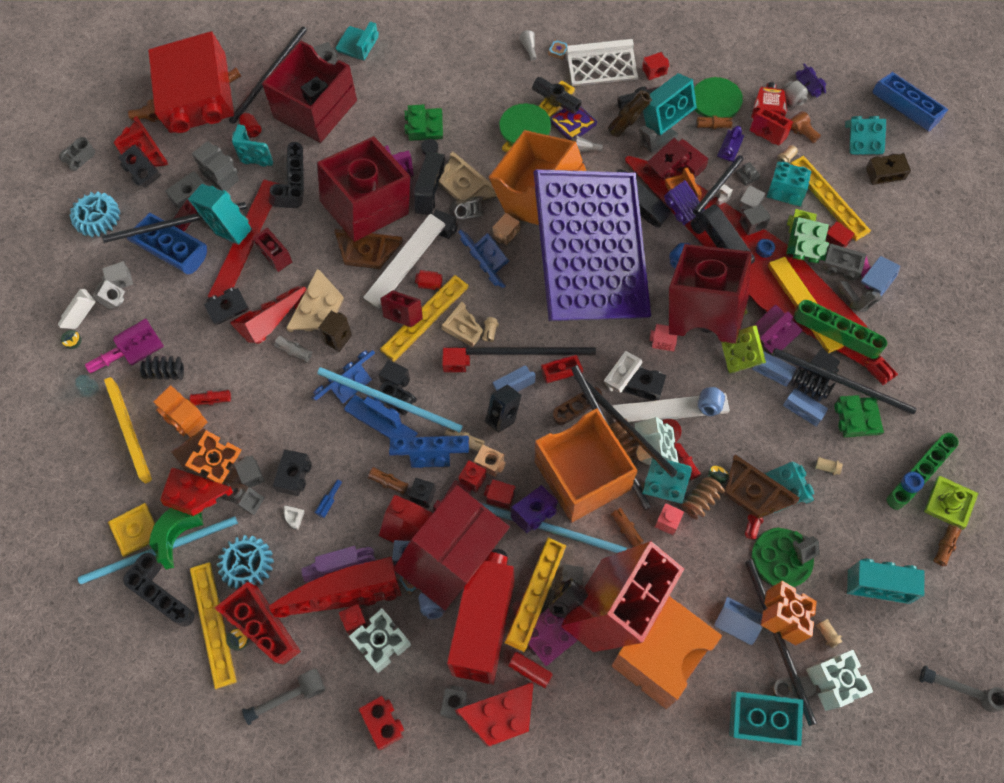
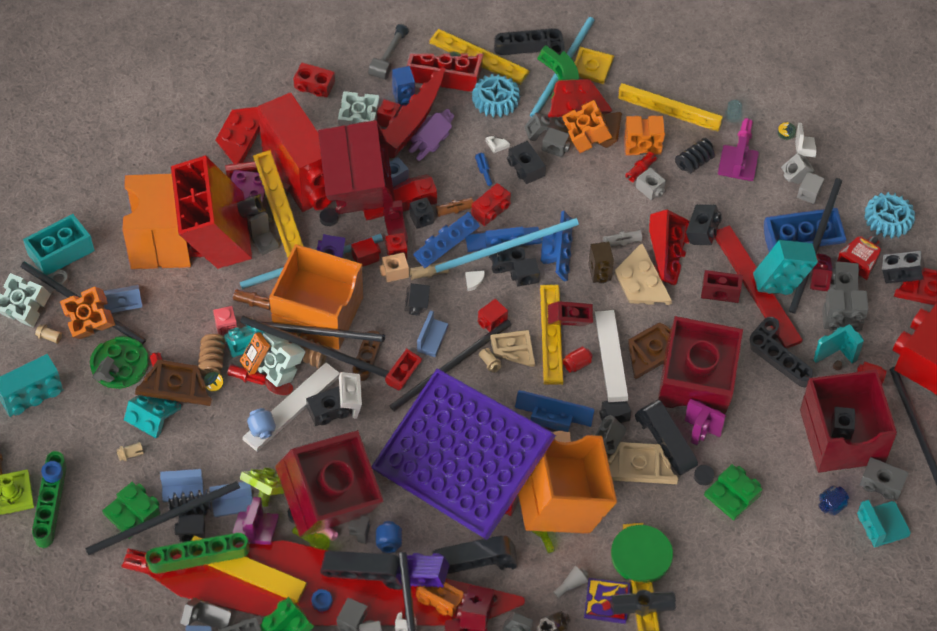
camera: 135 degrees right, 10 degrees down
(152, 200) = (863, 253): none -> red torso
(222, 380) = (651, 184): none -> light grey brick
(315, 632) = (403, 85): none -> blue brick
(360, 454) = (491, 204): none -> red brick
(371, 72) = (833, 500): none -> clear blue head
(436, 405) = (474, 279): none -> white tile
(674, 452) = (255, 353): none -> orange tile

